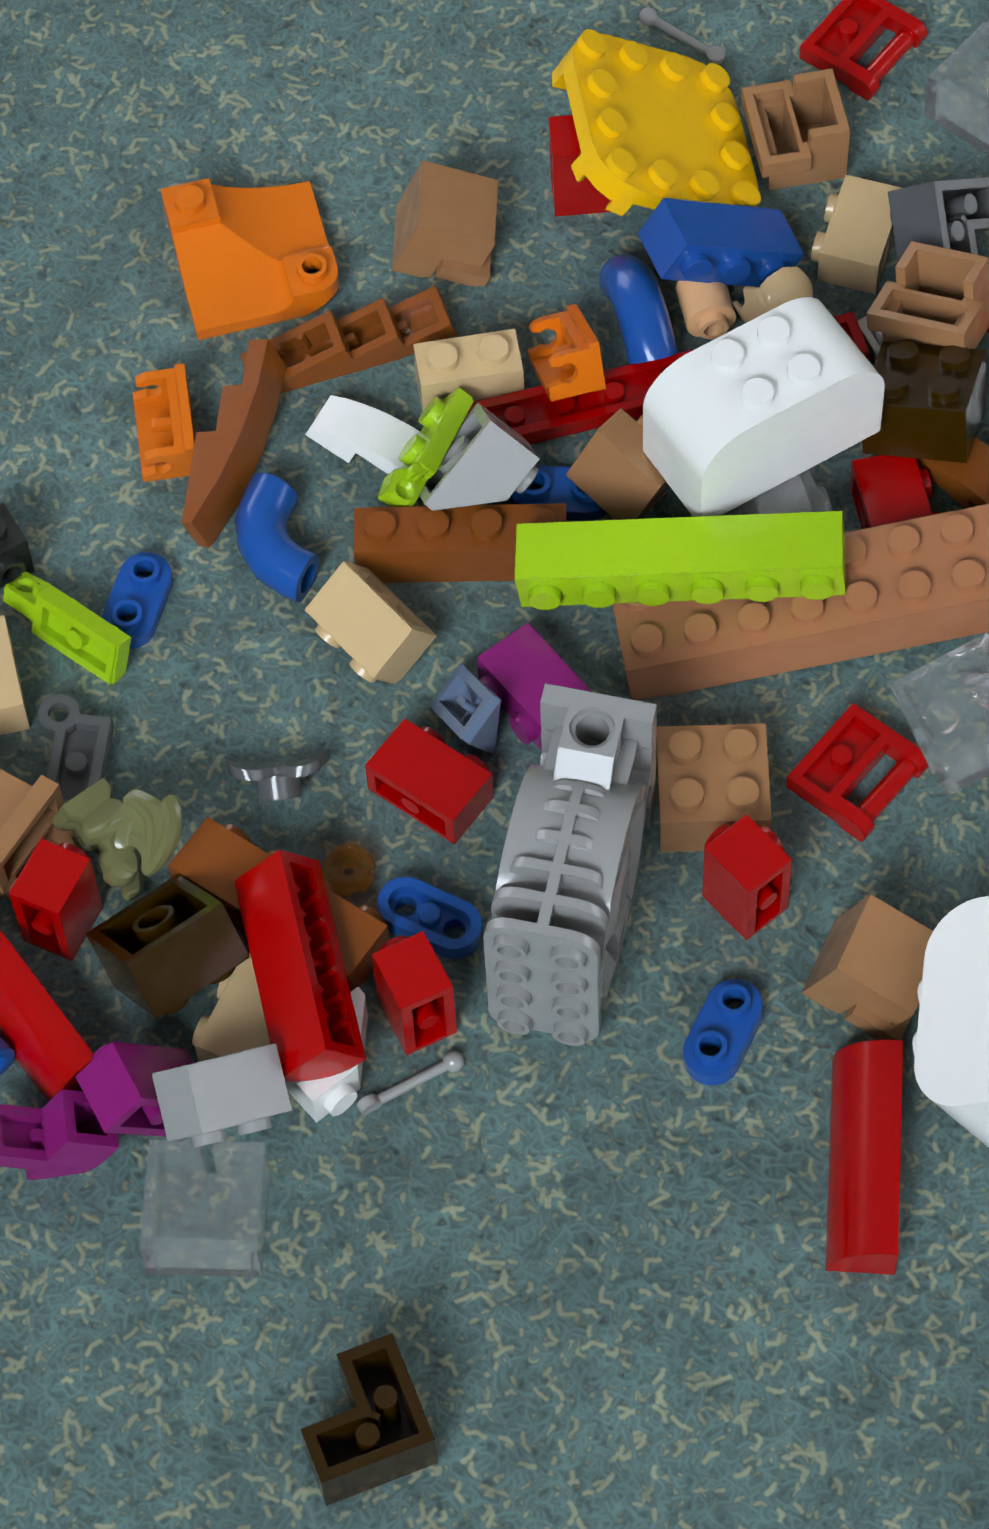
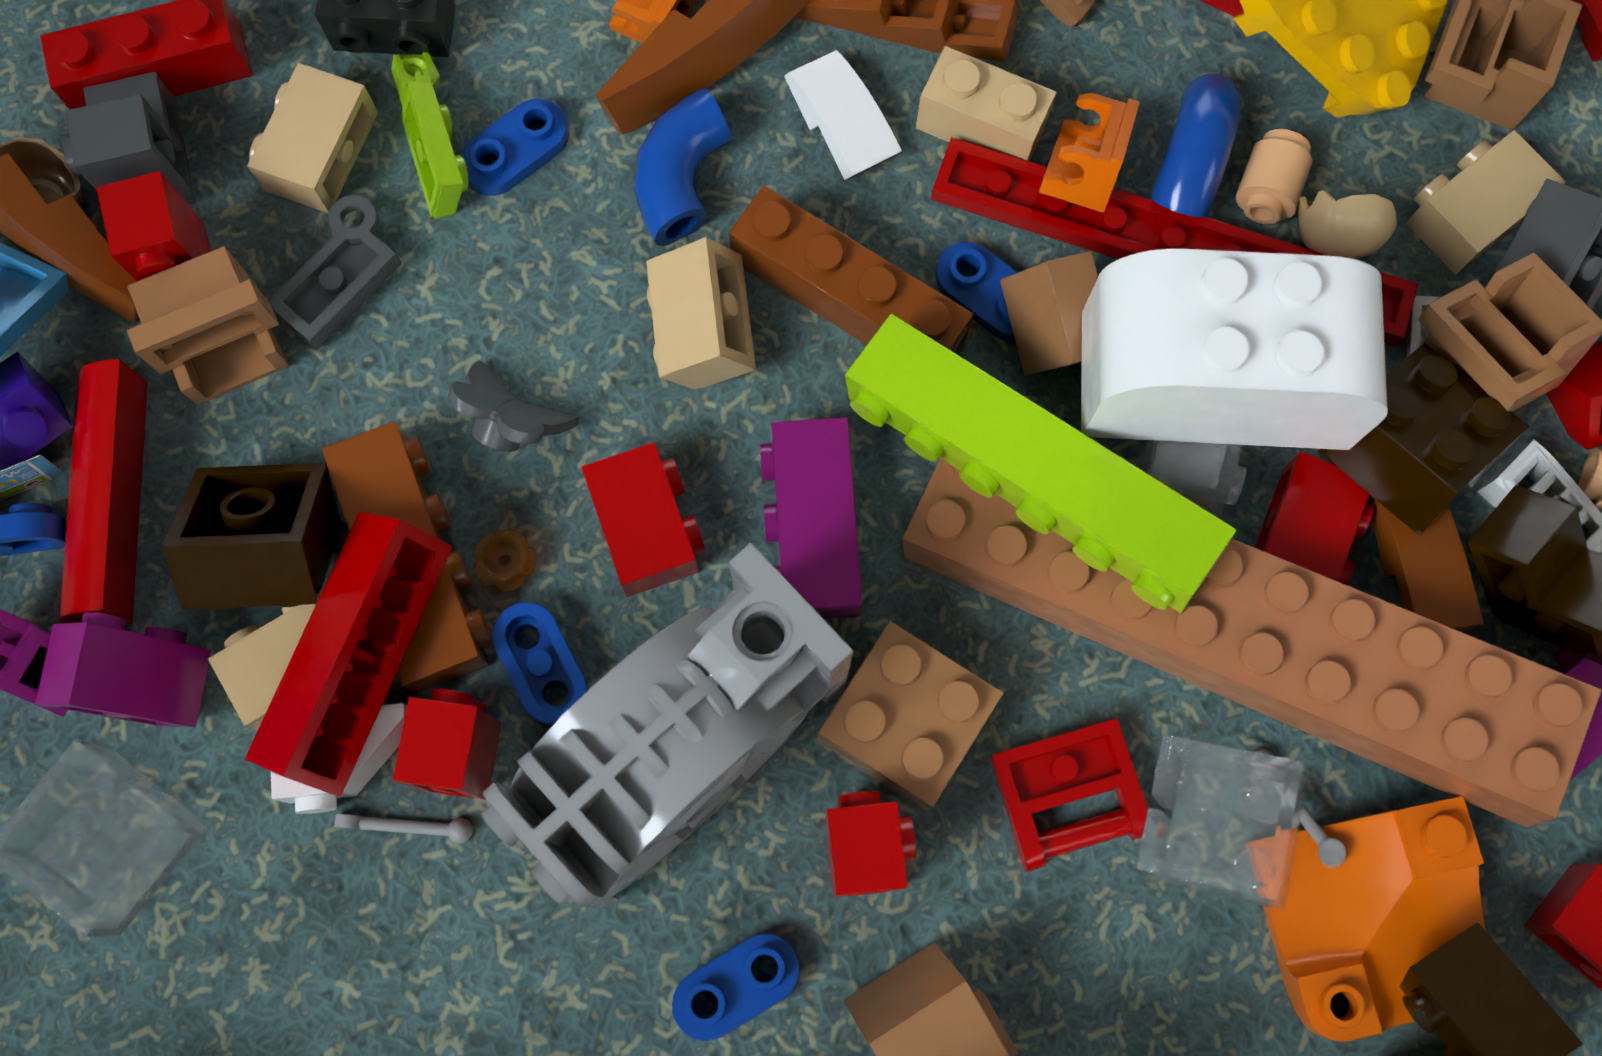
camera: 30 degrees right, 15 degrees up
(56, 898) = (193, 412): red brick -> none
(122, 831) = (290, 393): olive animal -> none
(222, 1093) = (164, 745): light grey brick -> none
(425, 451) = (878, 168): lime hinge -> none
(469, 709) = (725, 471): sand blue slope -> none
(481, 464) = (917, 217): light grey slope -> none
(718, 242) = (1328, 125): blue brick -> none

